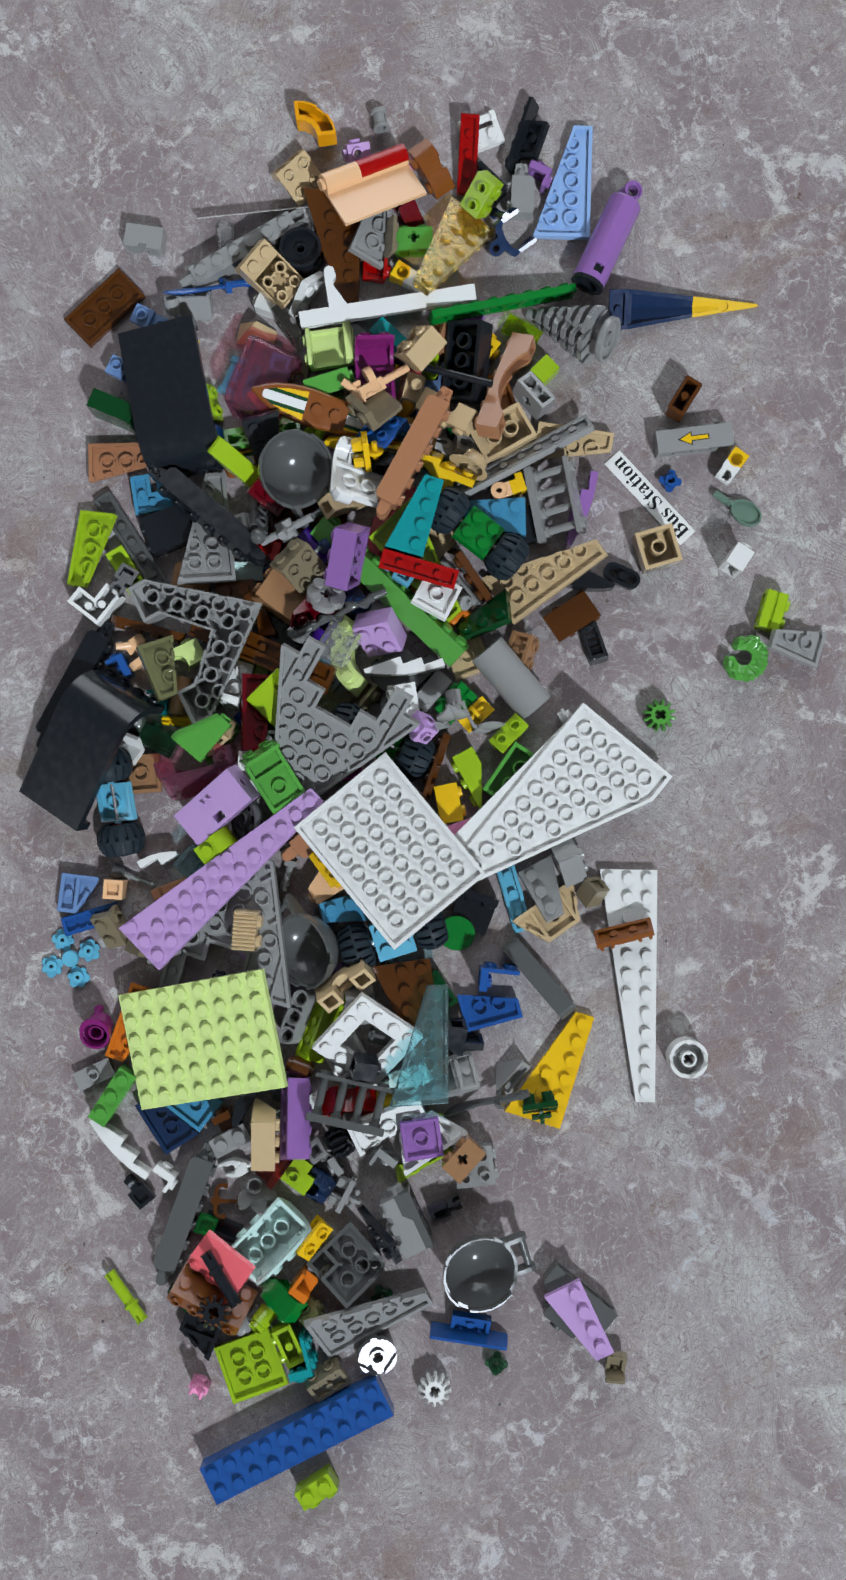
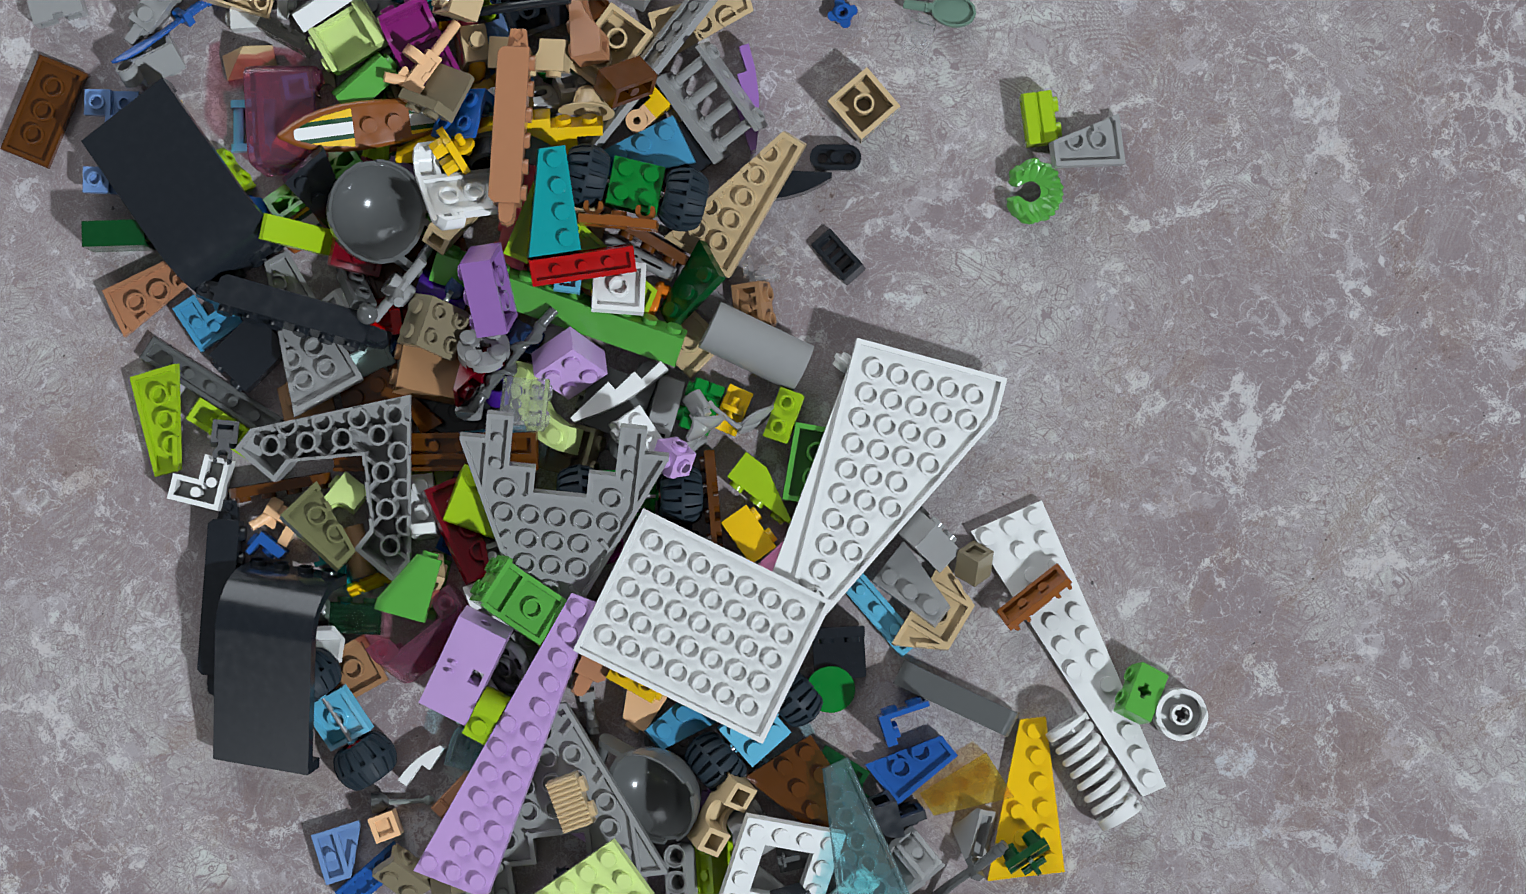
camera: 25 degrees left, 0 degrees up
(457, 548) = (618, 219): none -> dark orange plate
(464, 602) = (656, 278): light grey hair -> none
(504, 458) = (625, 81): none -> reddish brown brick
(519, 1041) = (967, 788): none -> clear yellow wing
(571, 616) = (796, 235): reddish brown piece -> none
(626, 1104) = (1130, 804): none -> white piece
(648, 496) = (826, 43): white sticker -> none
(659, 708) = (963, 317): bright green gear -> none
(666, 1031) = (1140, 693): none -> bright green brick
(736, 559) = (967, 75): white brick -> none

